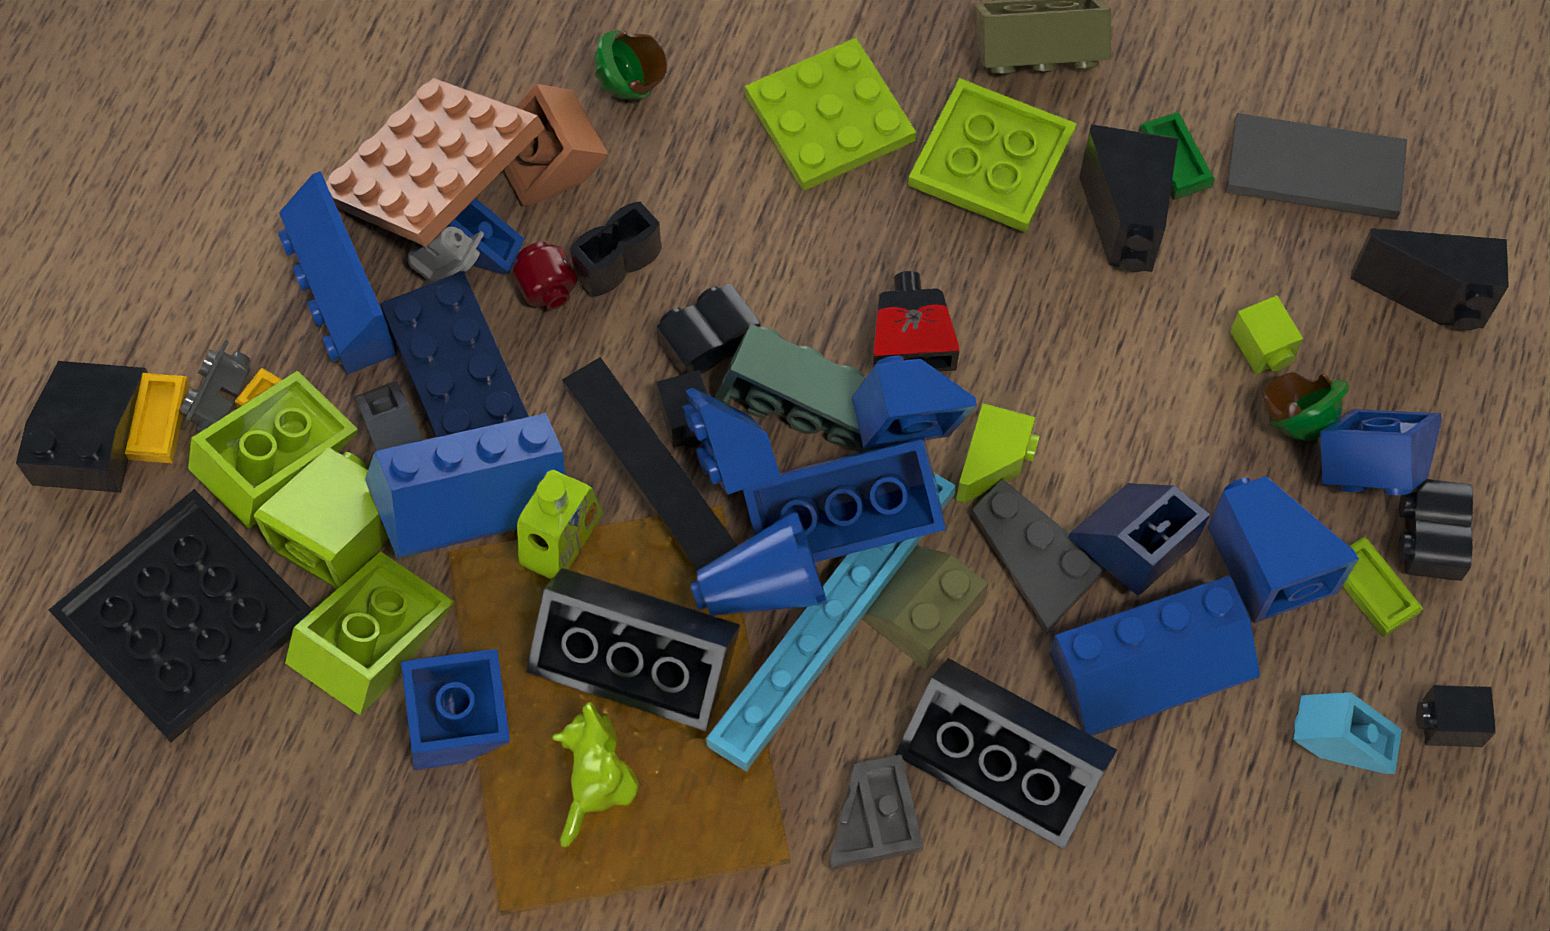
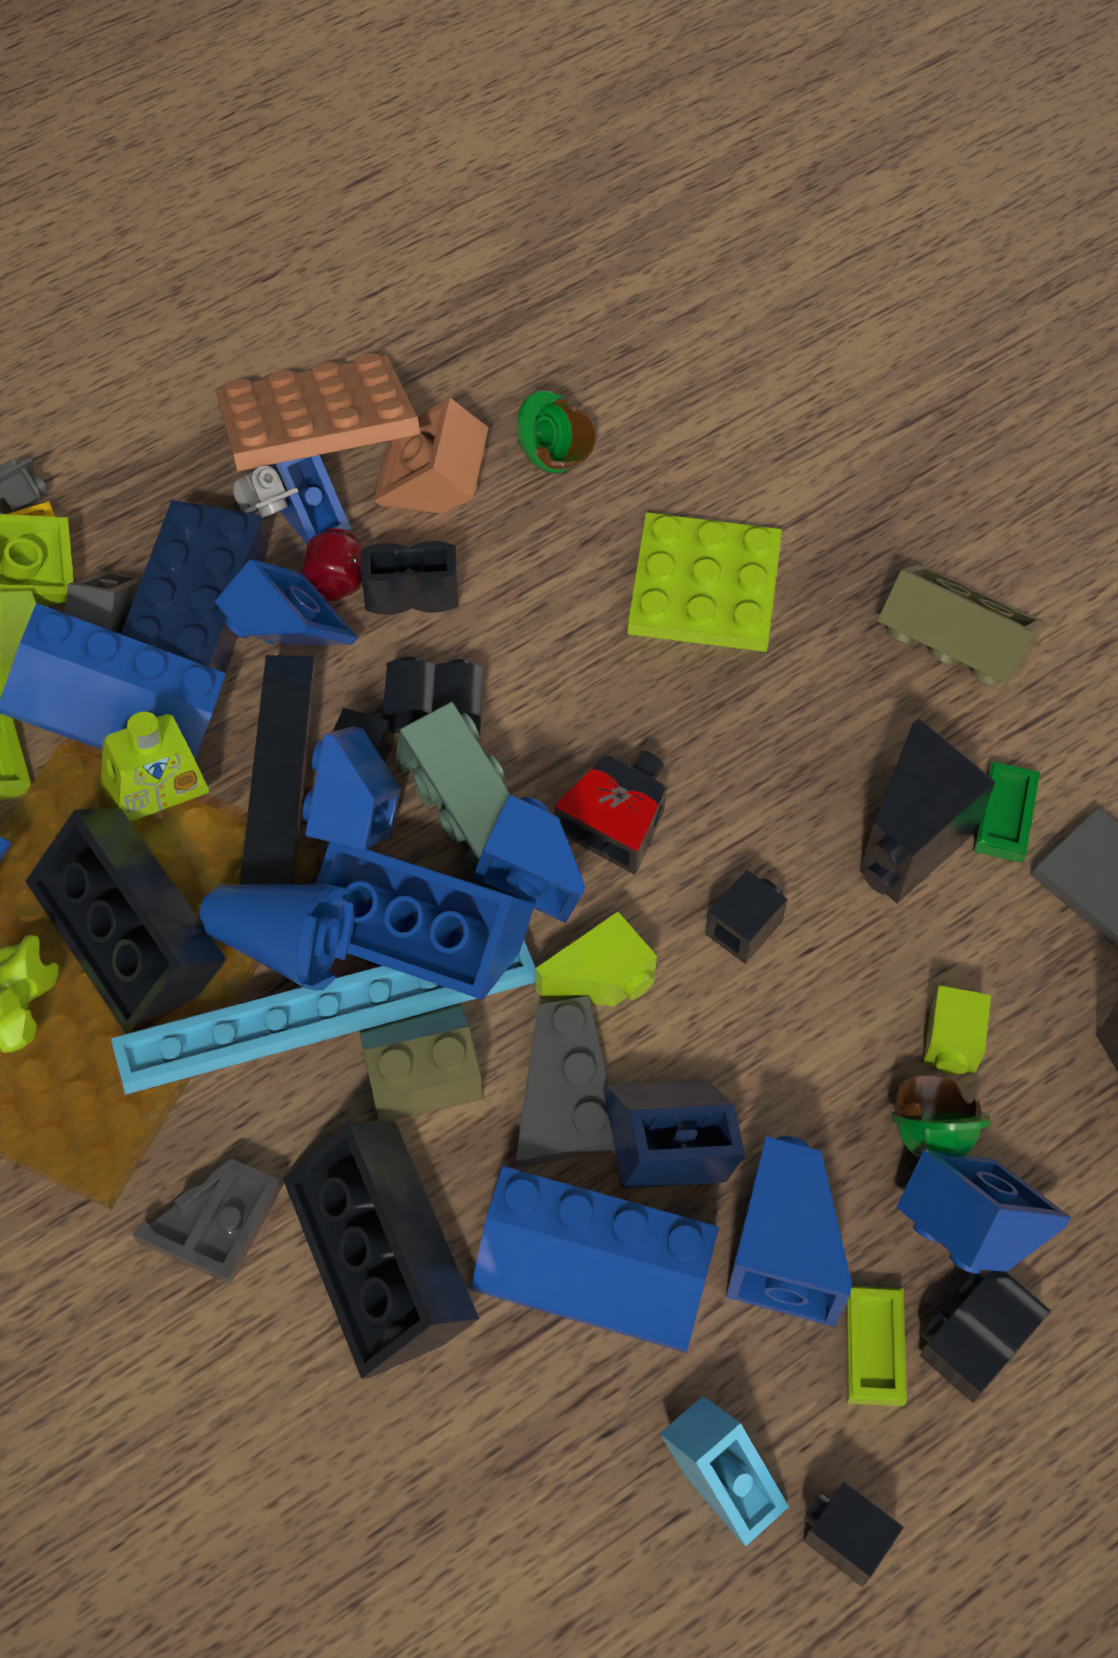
camera: 35 degrees right, 5 degrees down
(335, 277) = (163, 459): blue slope -> none
(546, 335) = (281, 608): none -> blue slope
(992, 155) = (823, 703): lime plate -> none
(1065, 348) = (746, 916): none -> black brick

